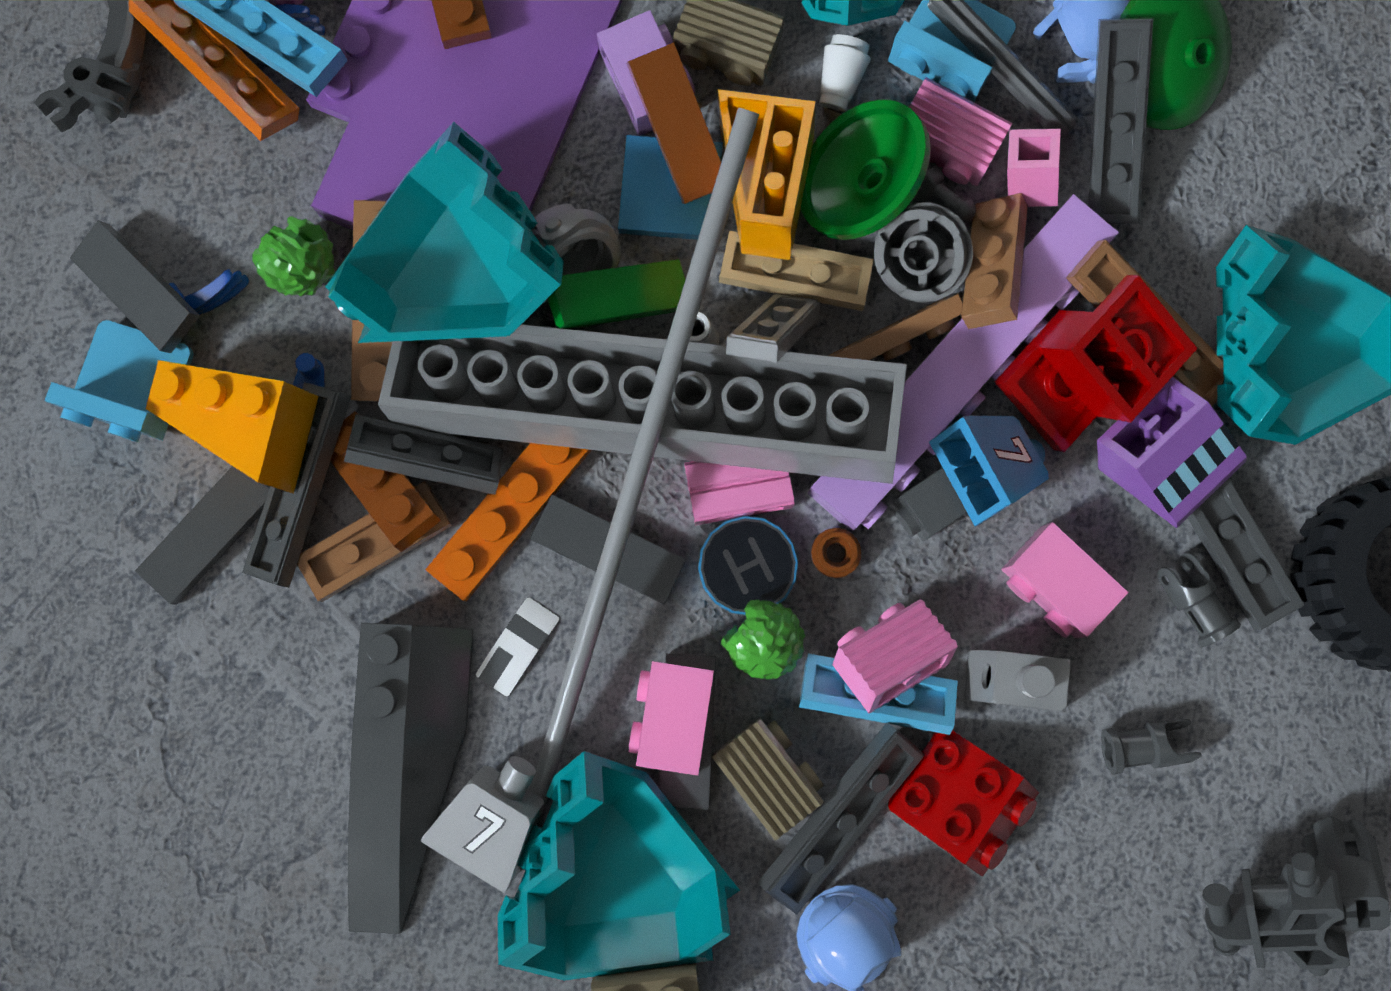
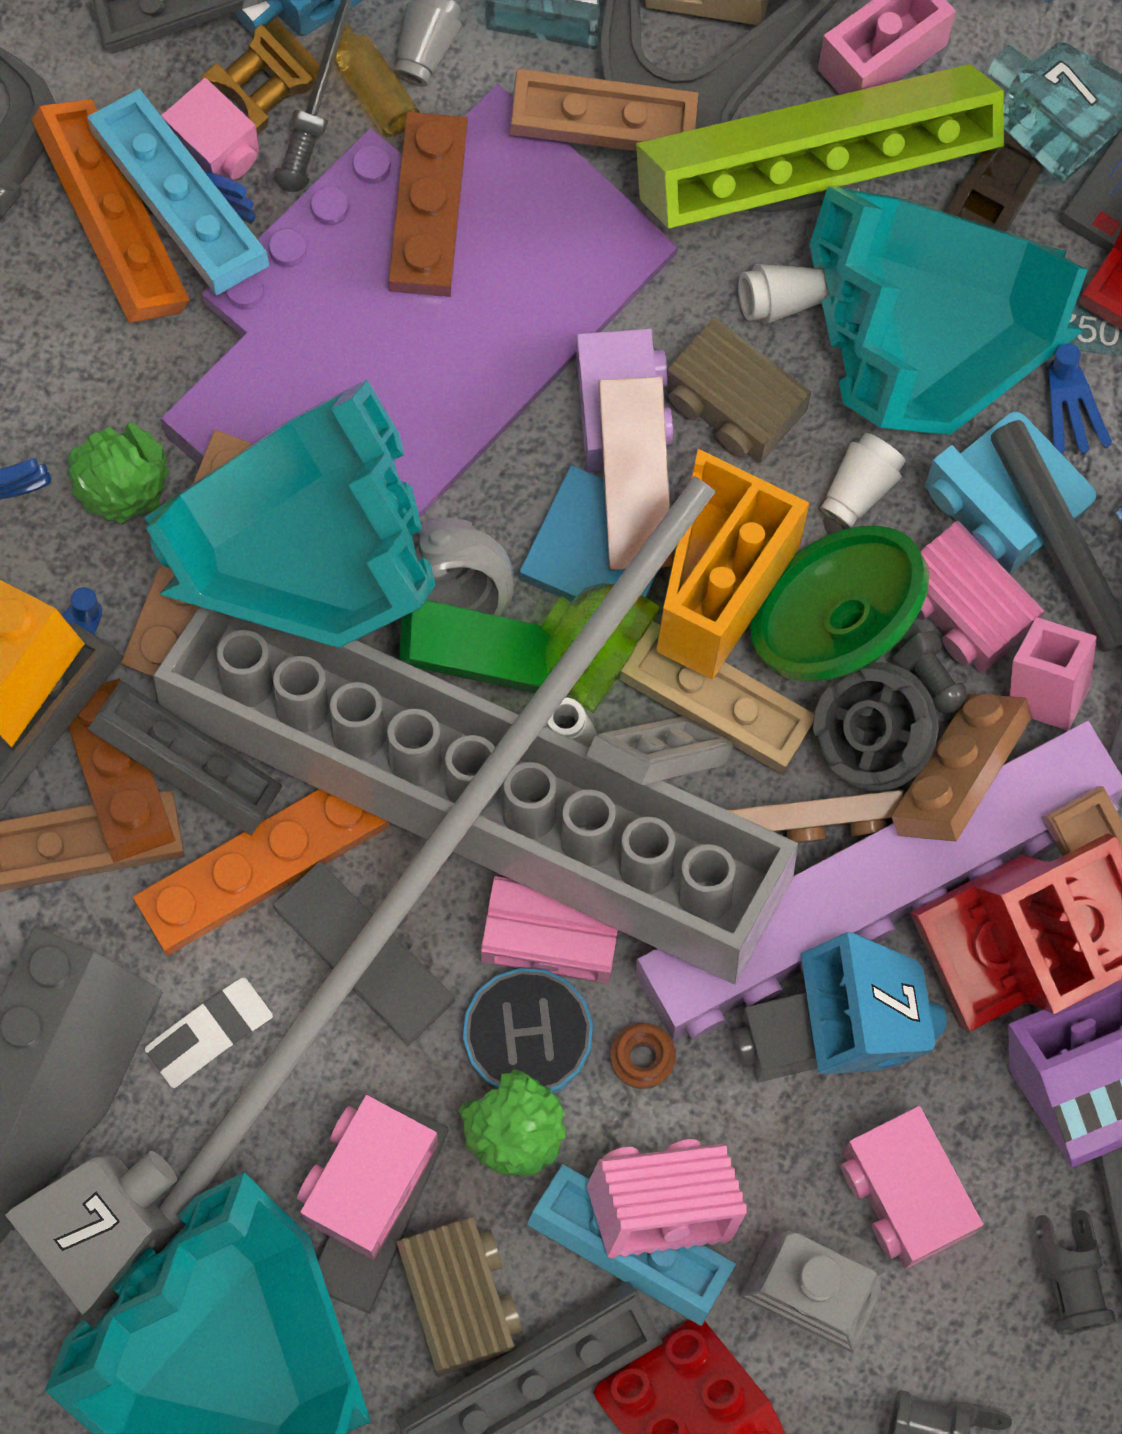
camera: 15 degrees right, 10 degrees down
(675, 255) = (567, 621): none -> clear neon green cylinder

